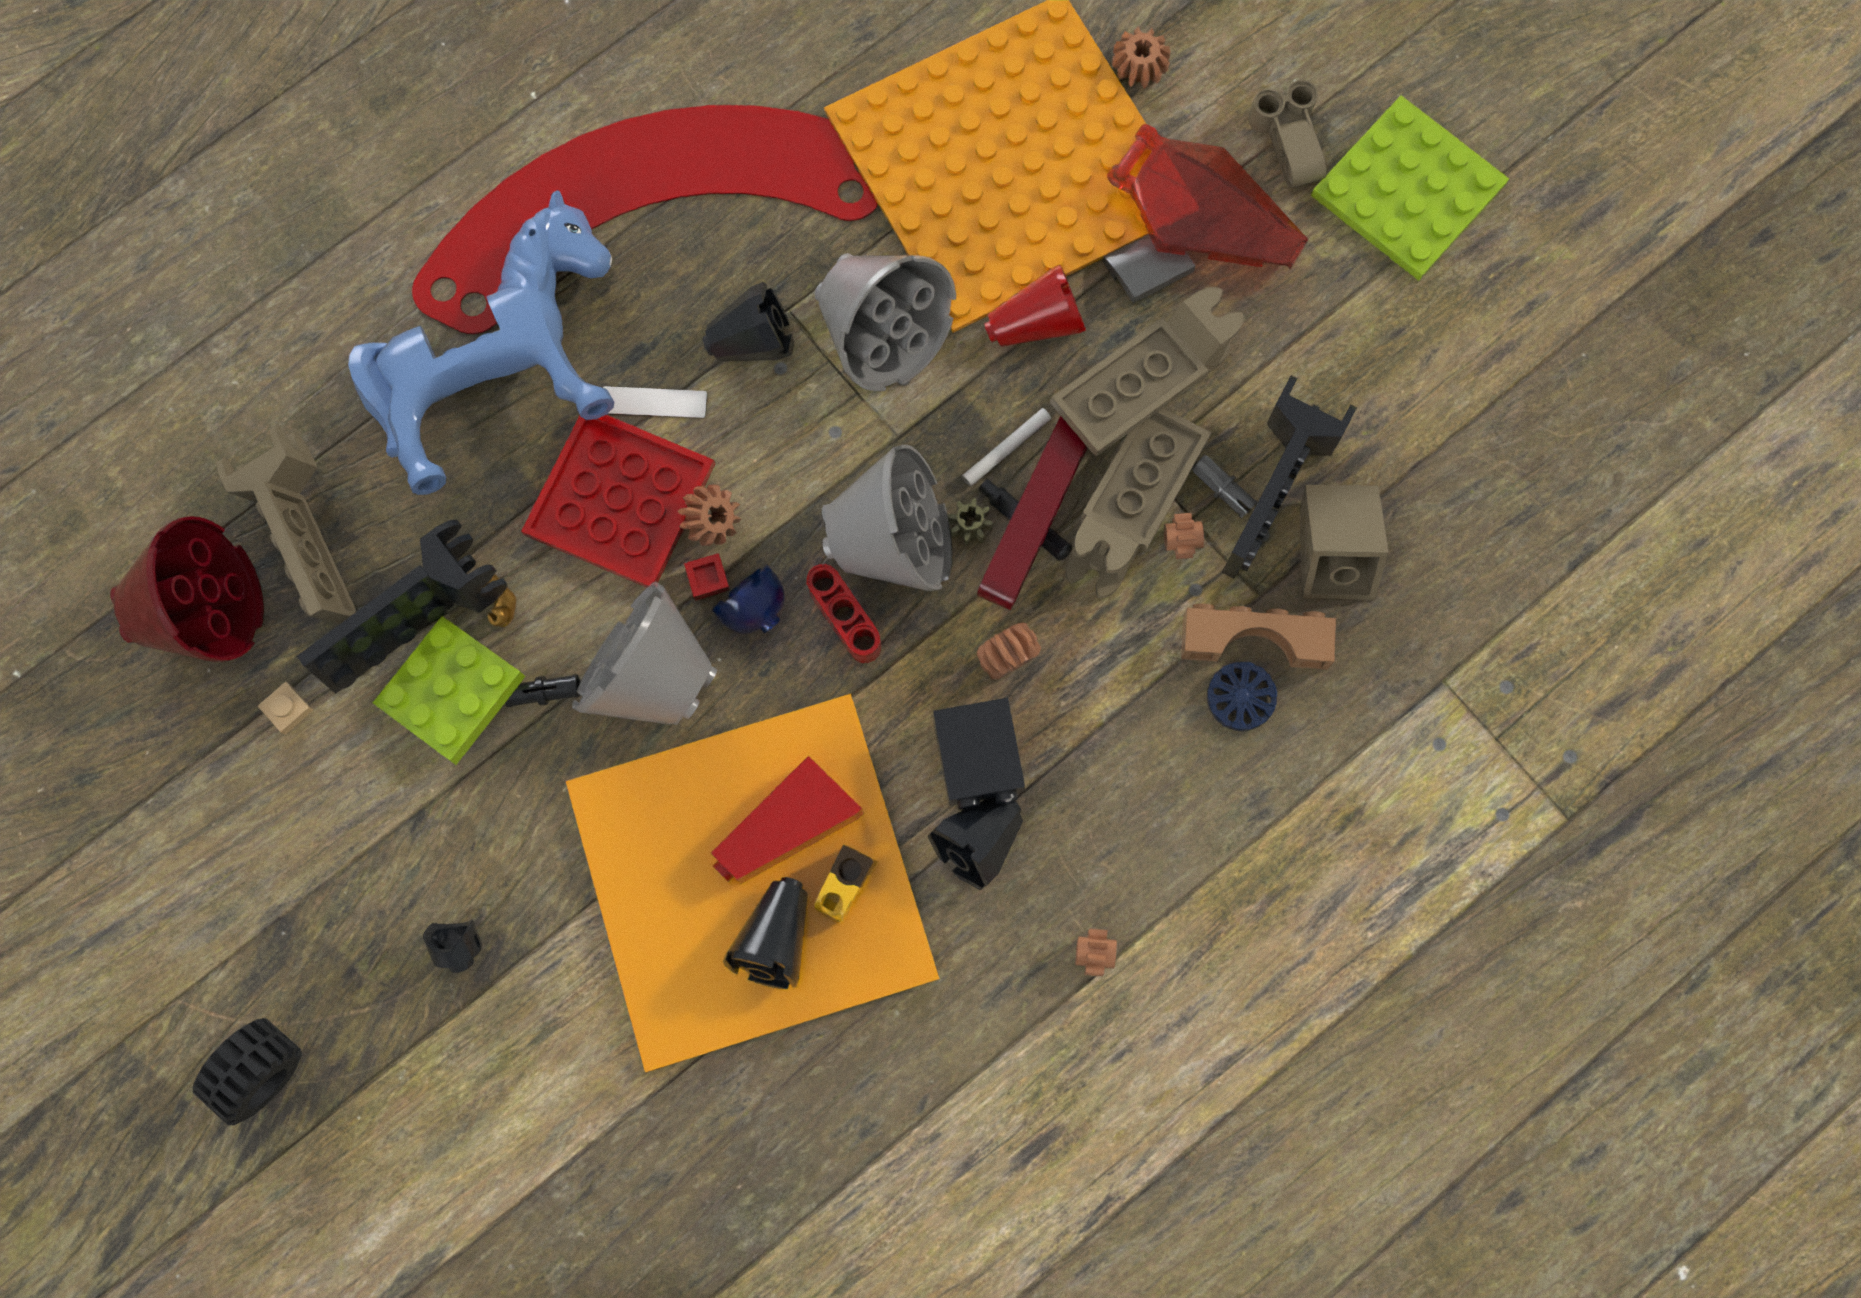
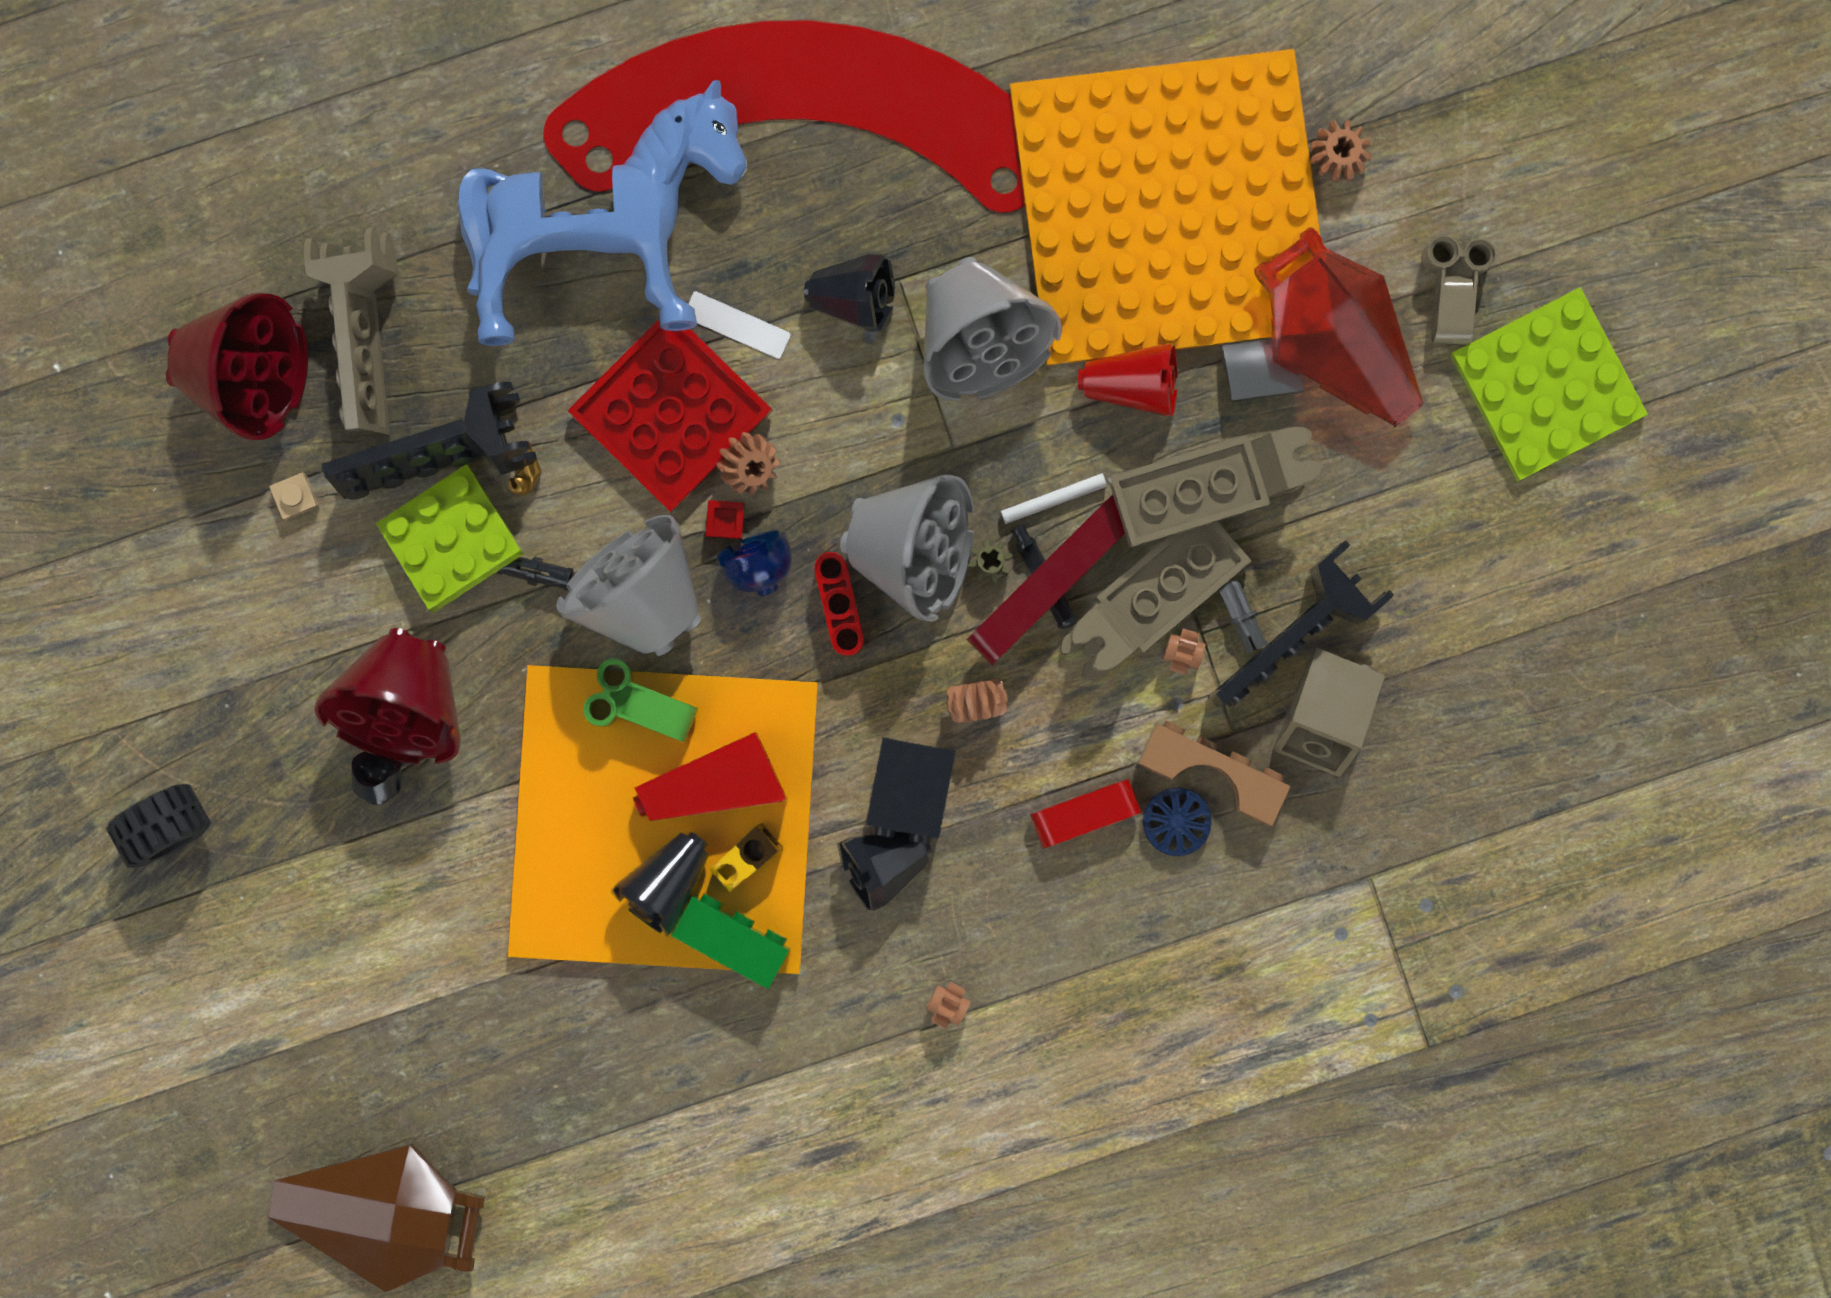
camera: 20 degrees right, 10 degrees up
(445, 860) = (396, 701): none -> dark red cone
(687, 775) = (640, 705): none -> bright green piece
(860, 968) = (731, 940): none -> green brick
(1152, 719) = (1085, 813): none -> red beam

